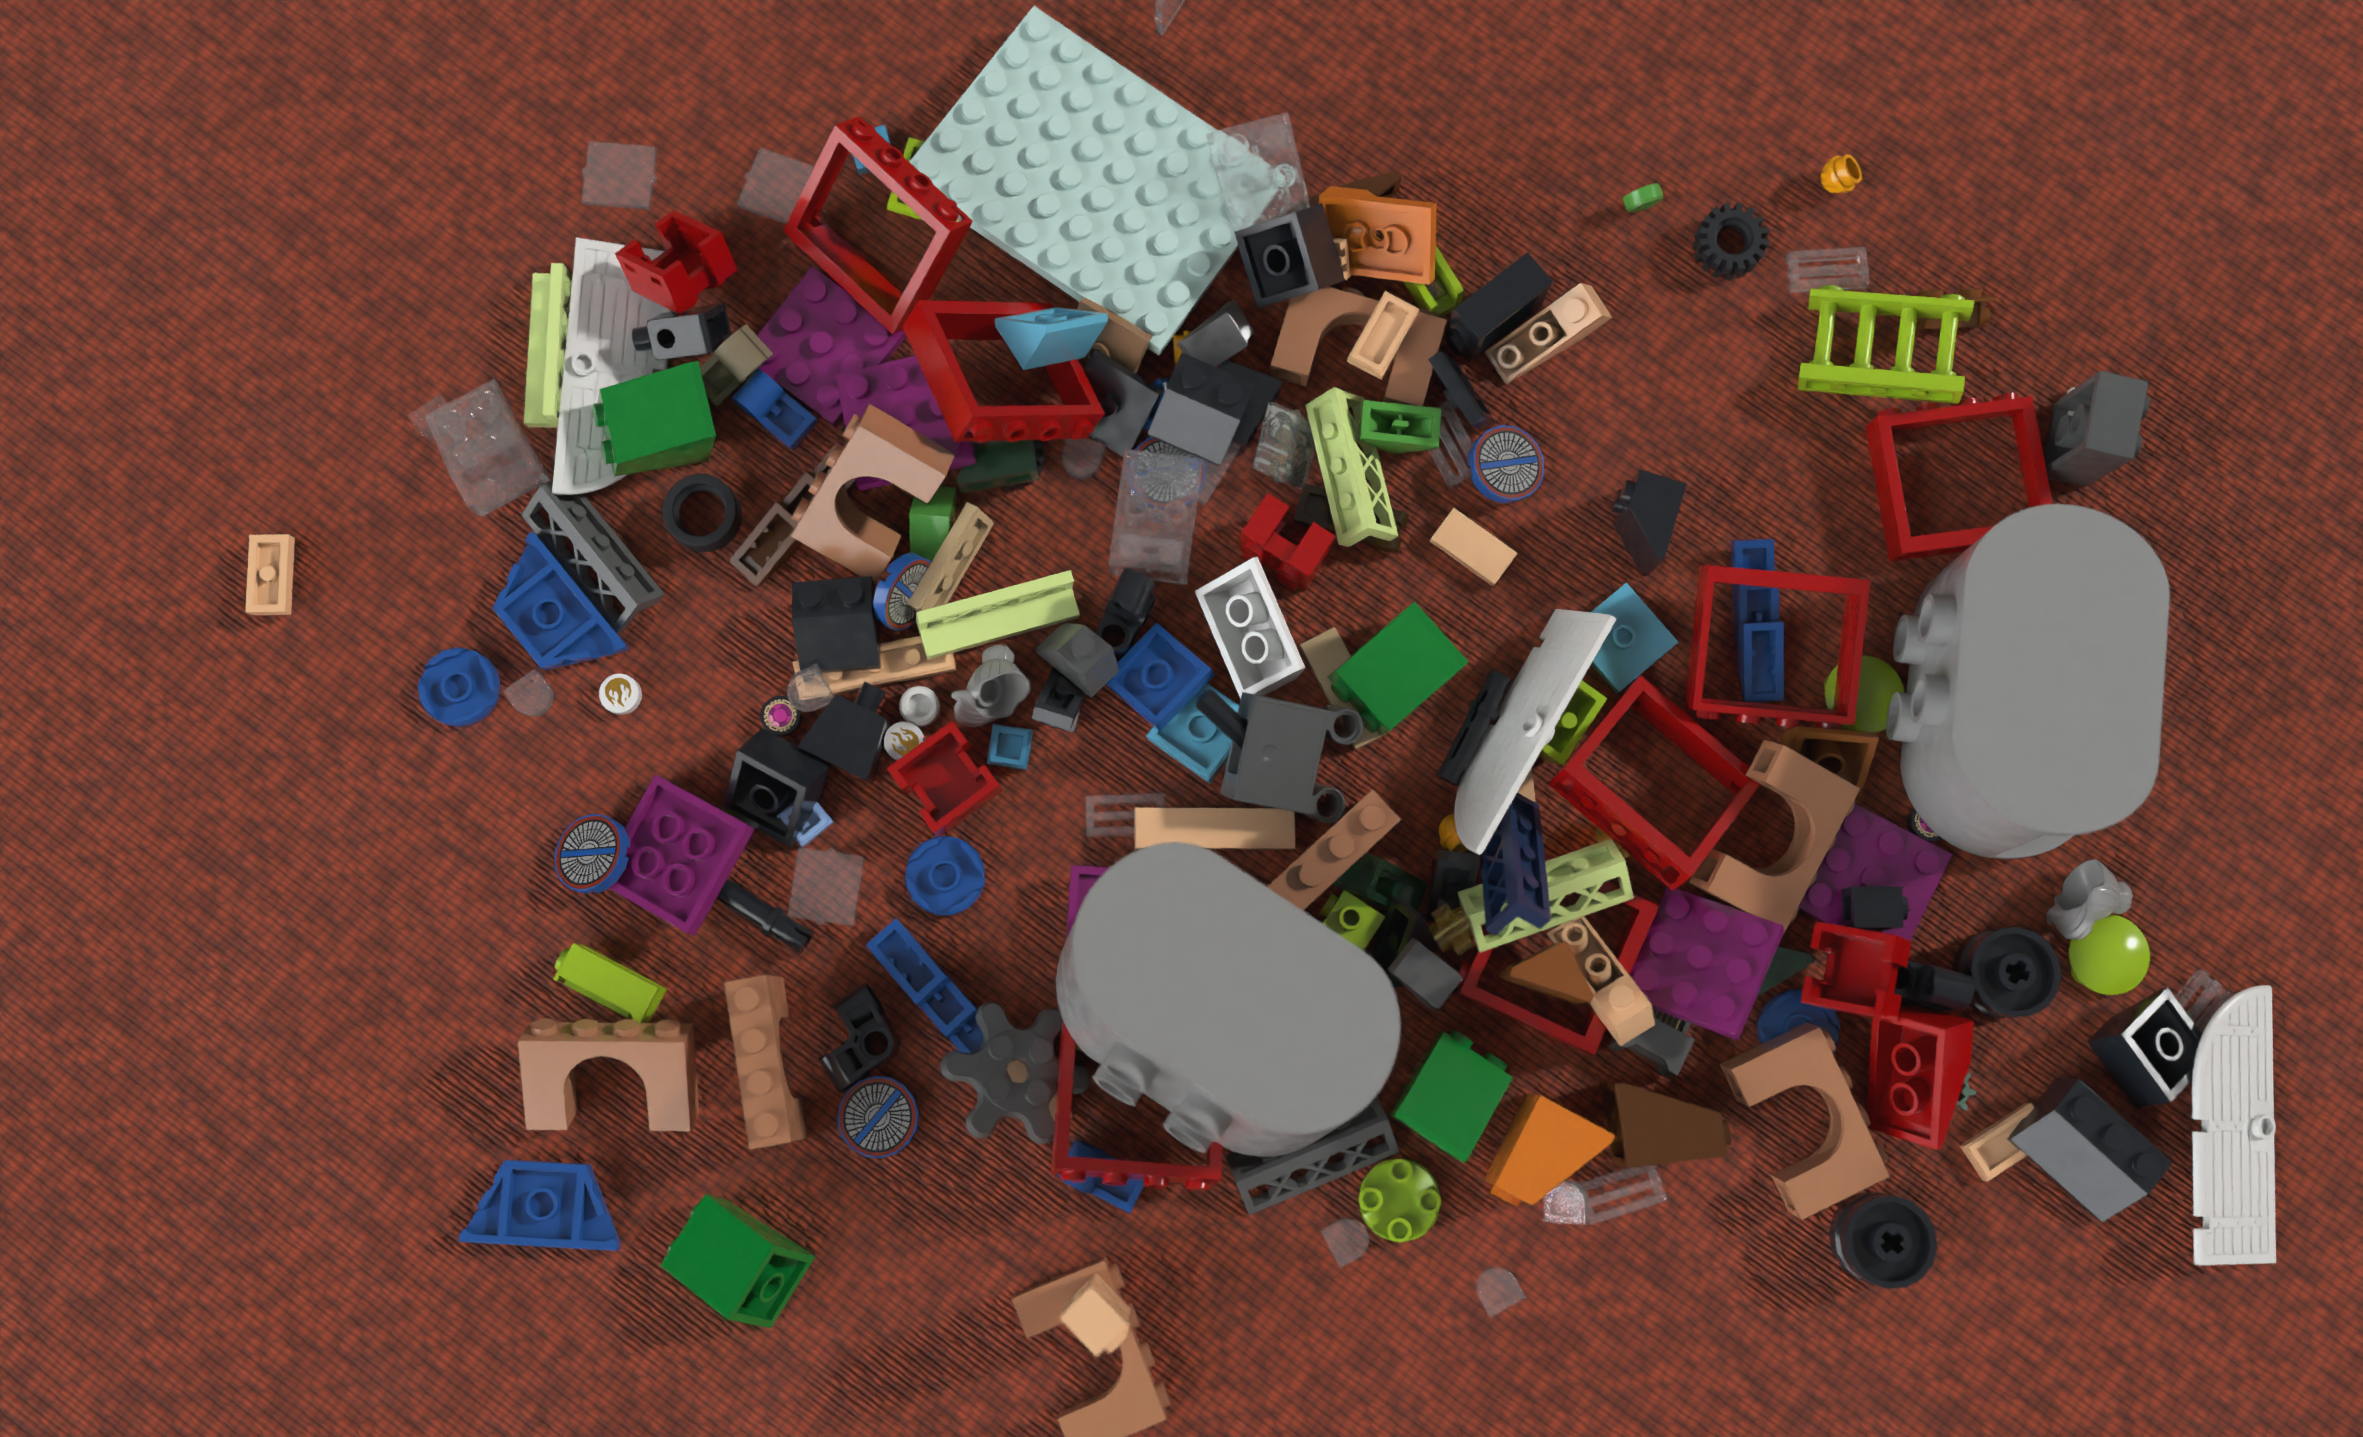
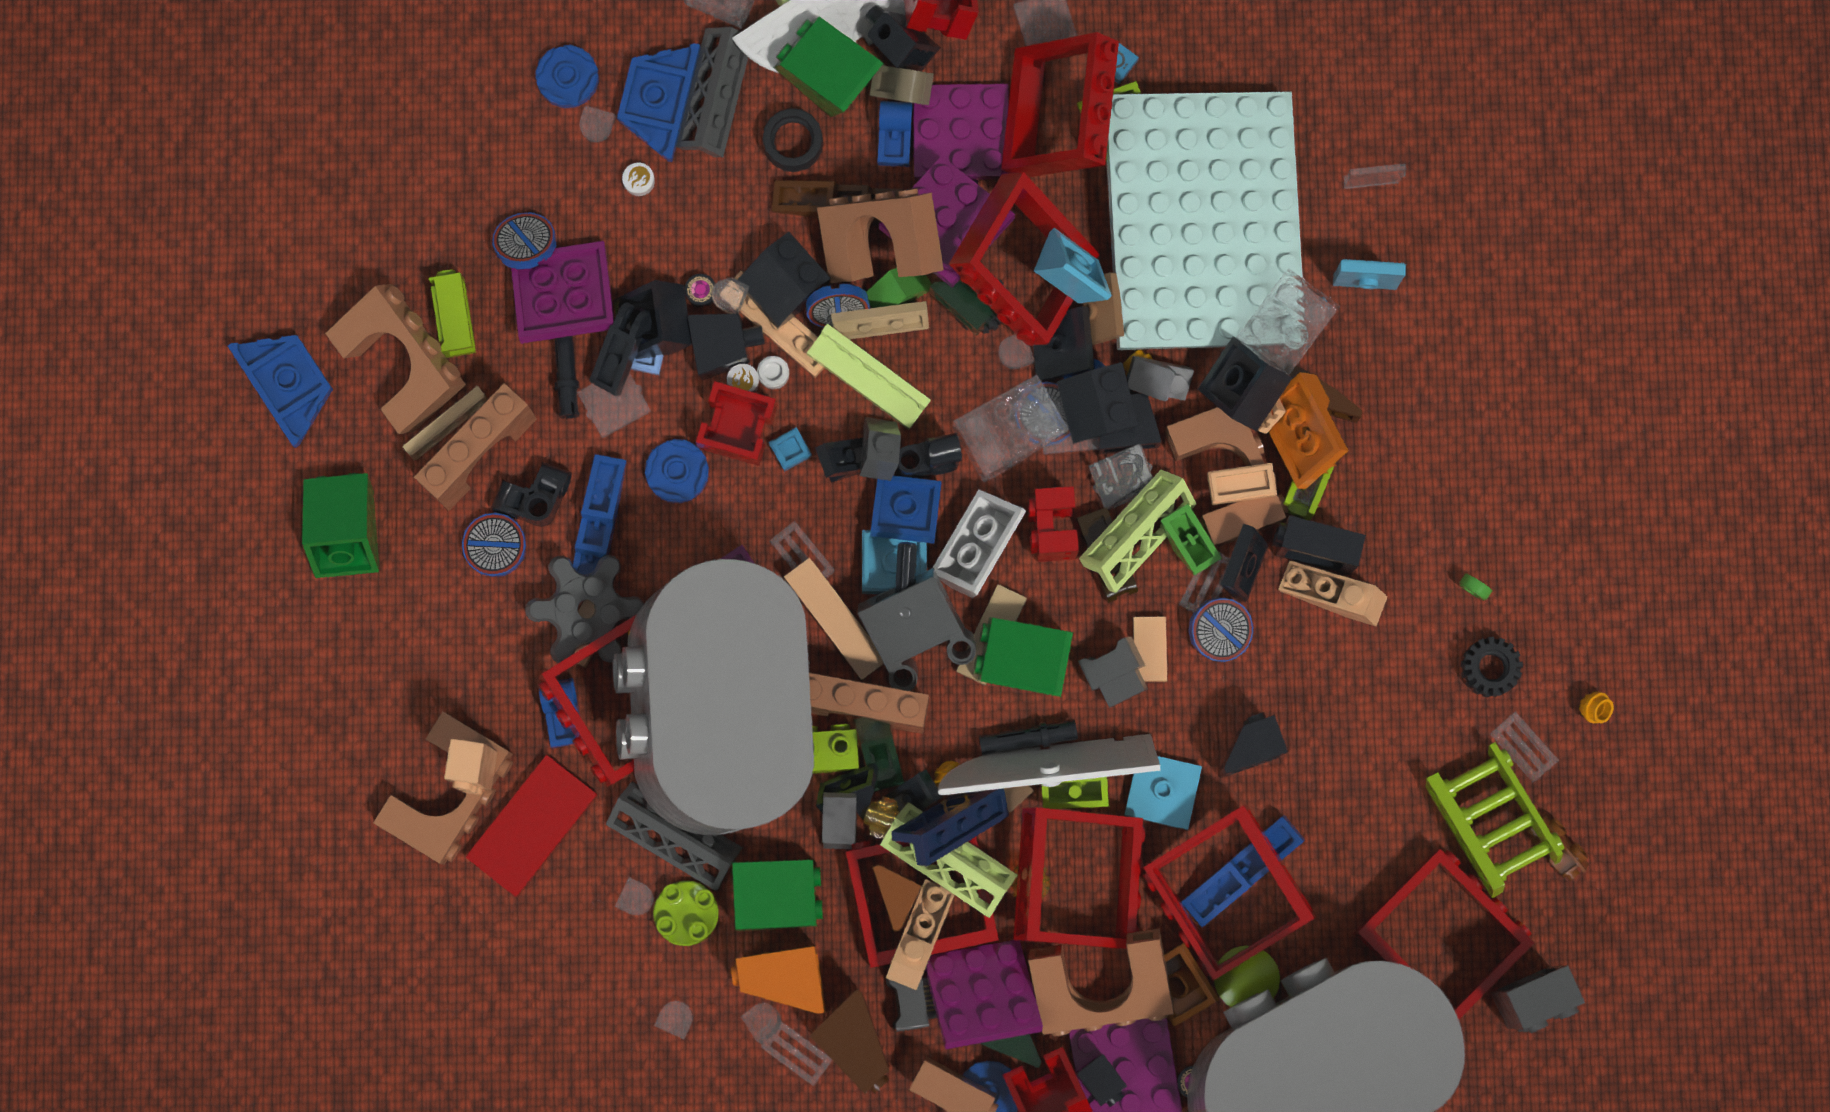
camera: 55 degrees right, 0 degrees up
(716, 1074) = (445, 423): none -> tan tile
(780, 841) = (619, 350): none -> black hinge
(992, 689) = (818, 409): light grey hair -> none
(1194, 1293) = (531, 826): none -> red tile
(1269, 66) = (1369, 274): none -> medium azure plate
(1476, 595) = (1116, 672): none -> dark grey piece

